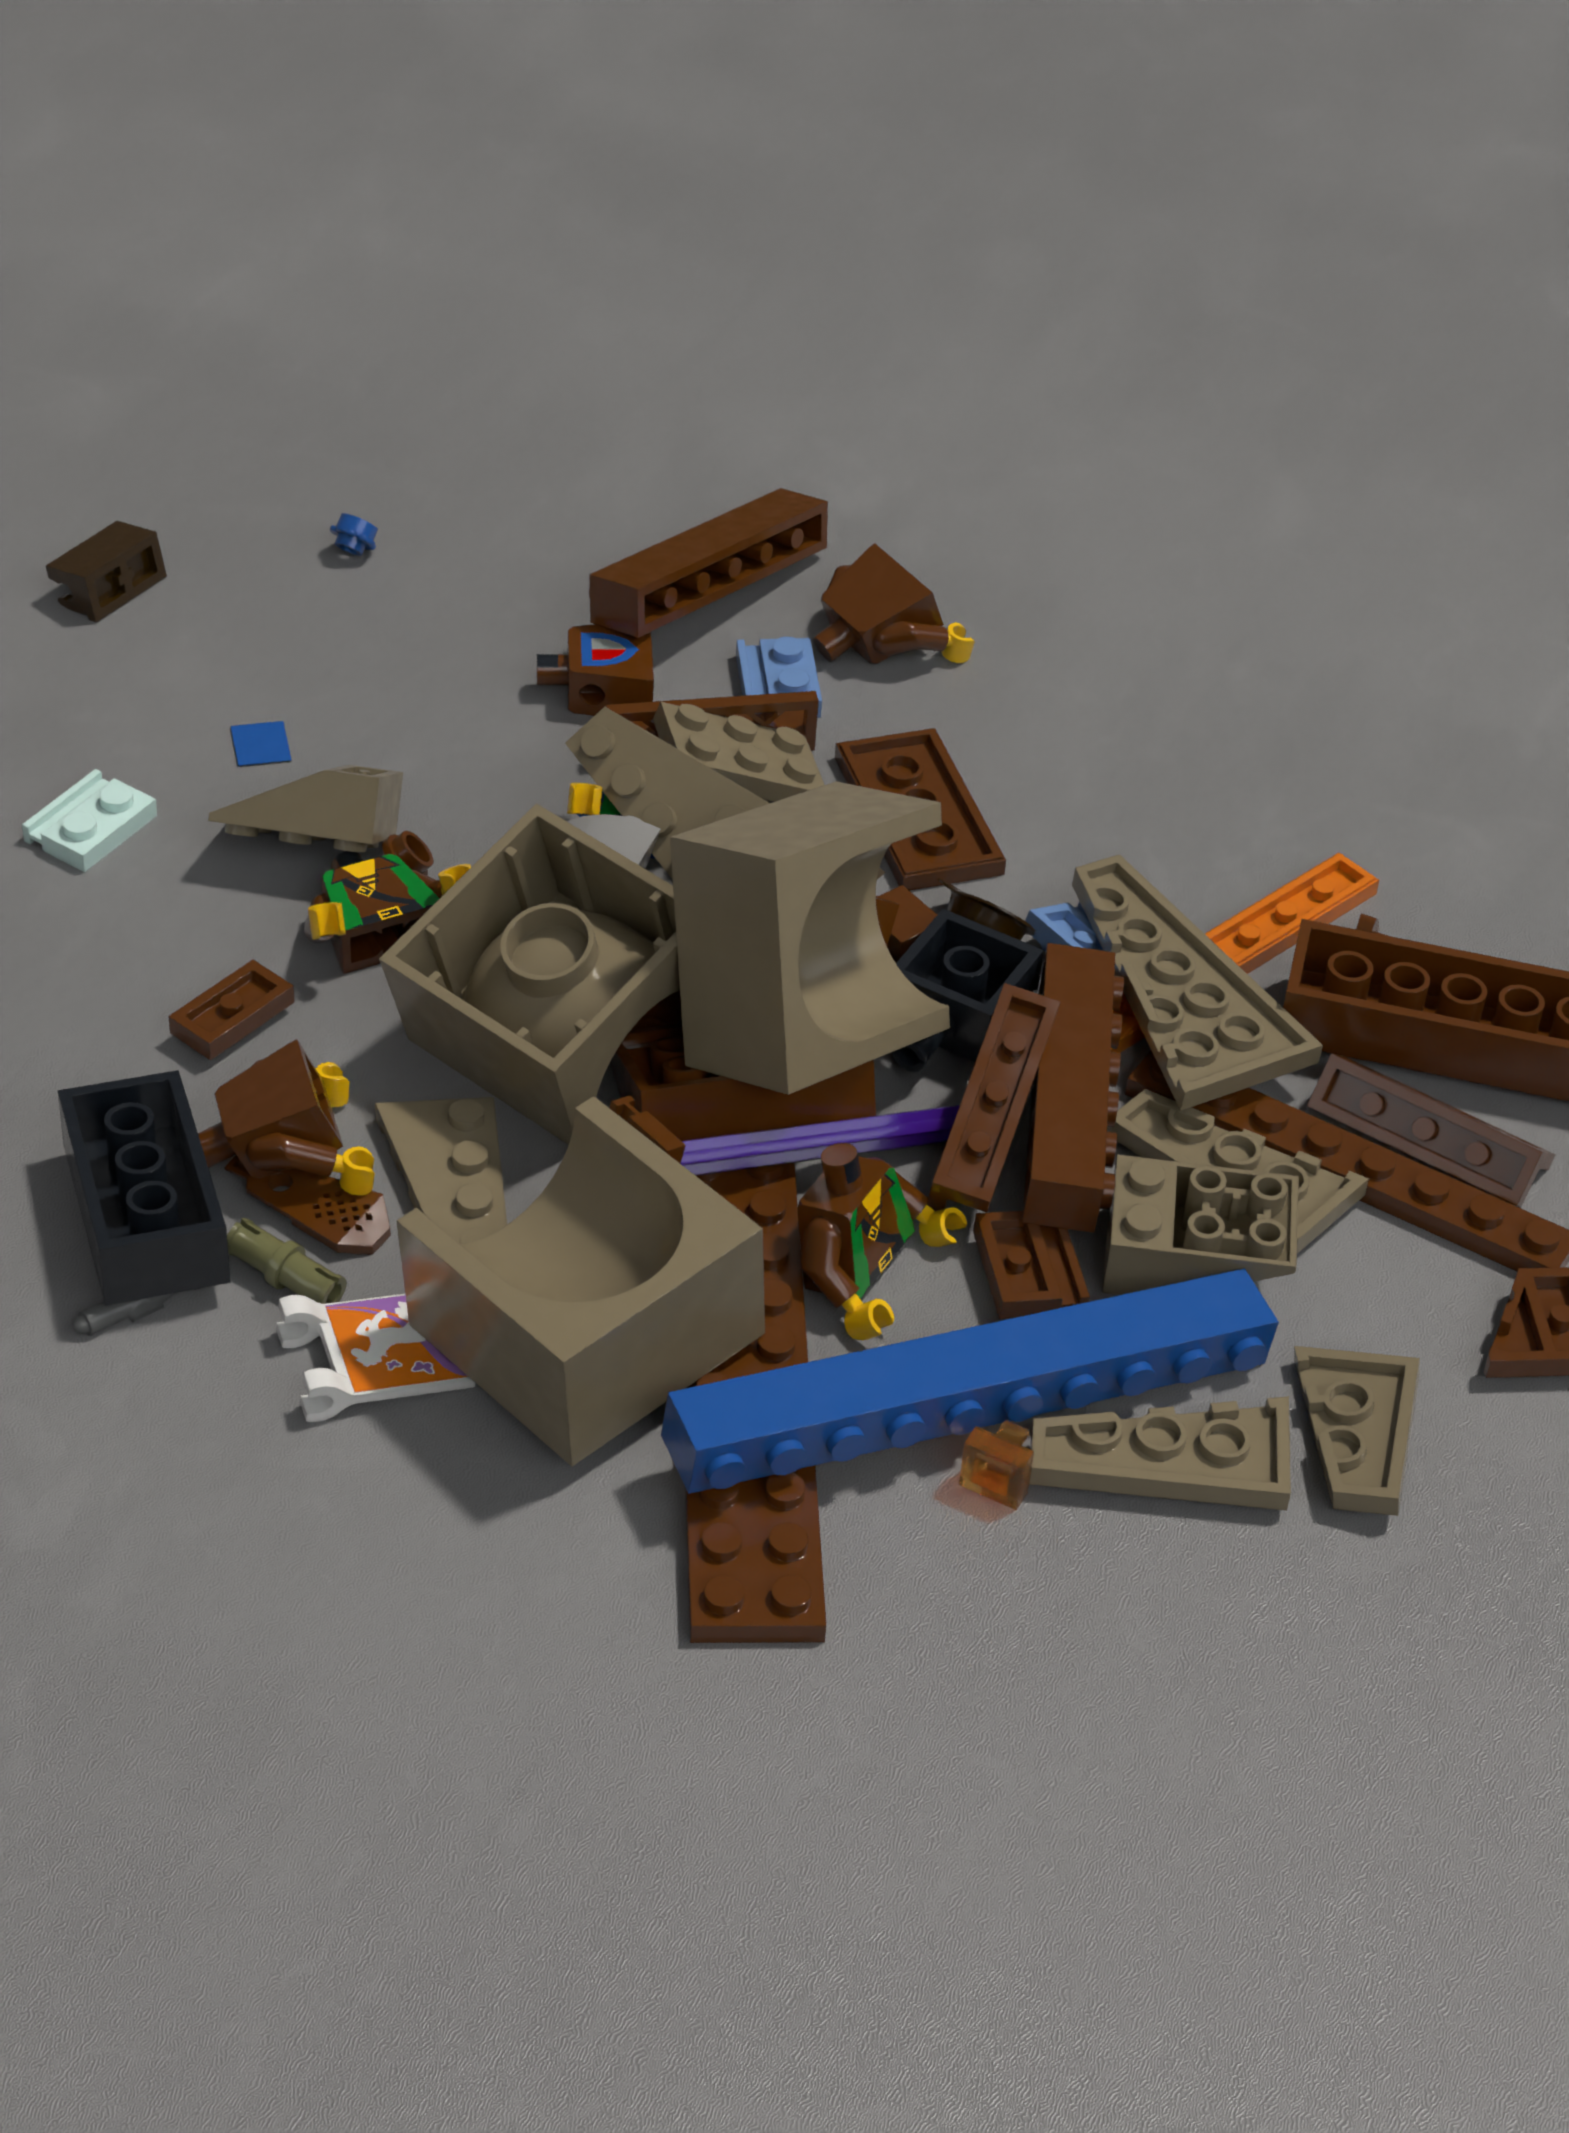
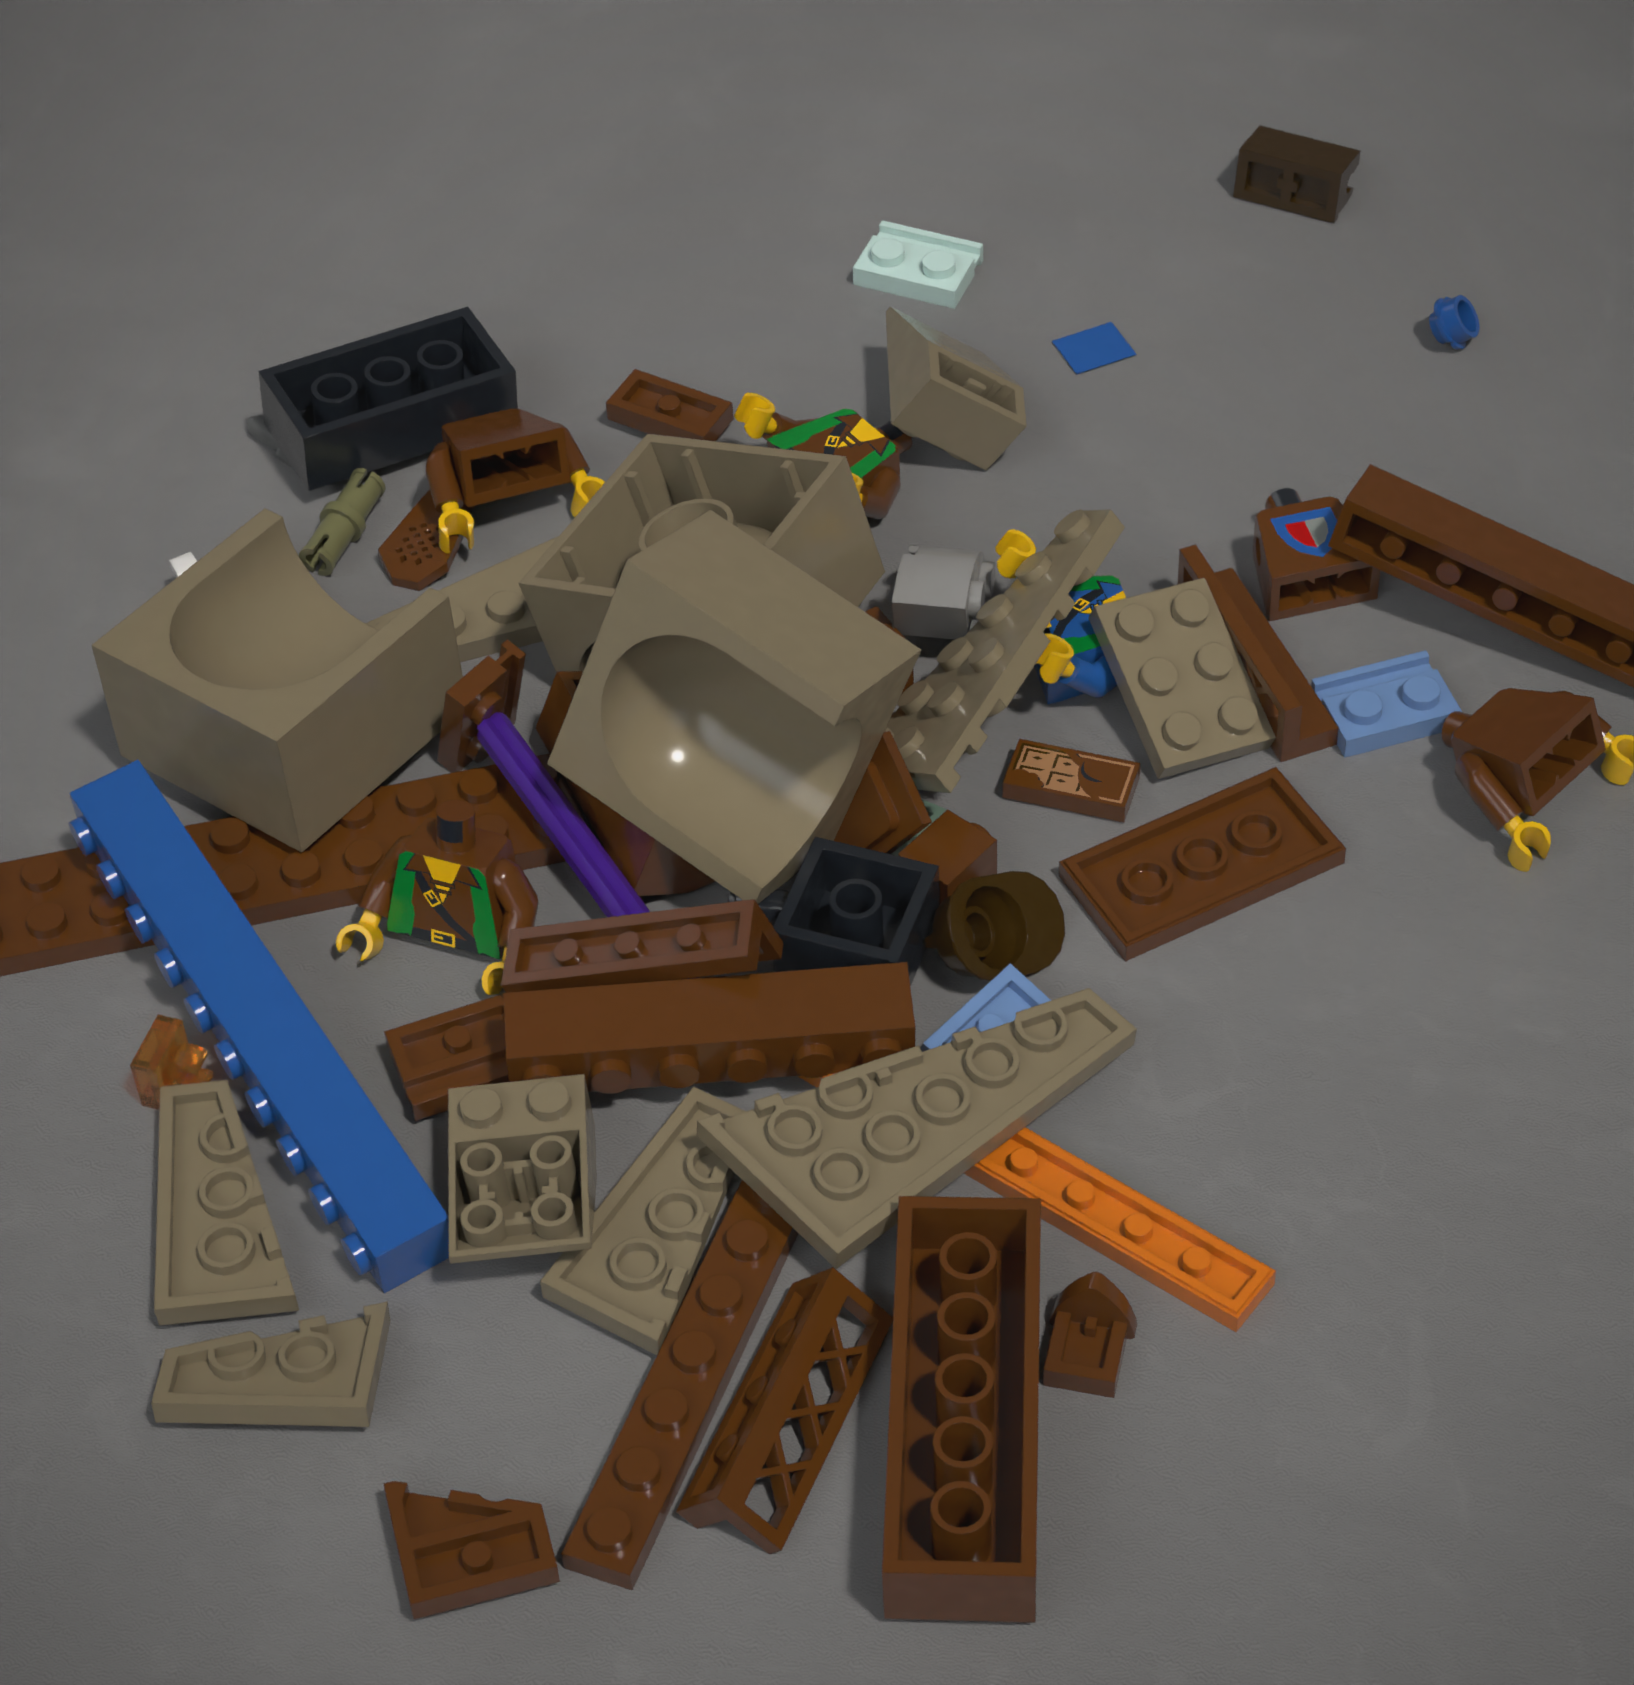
camera: 85 degrees right, 5 degrees up
(409, 850) = (948, 471): reddish brown plate -> none

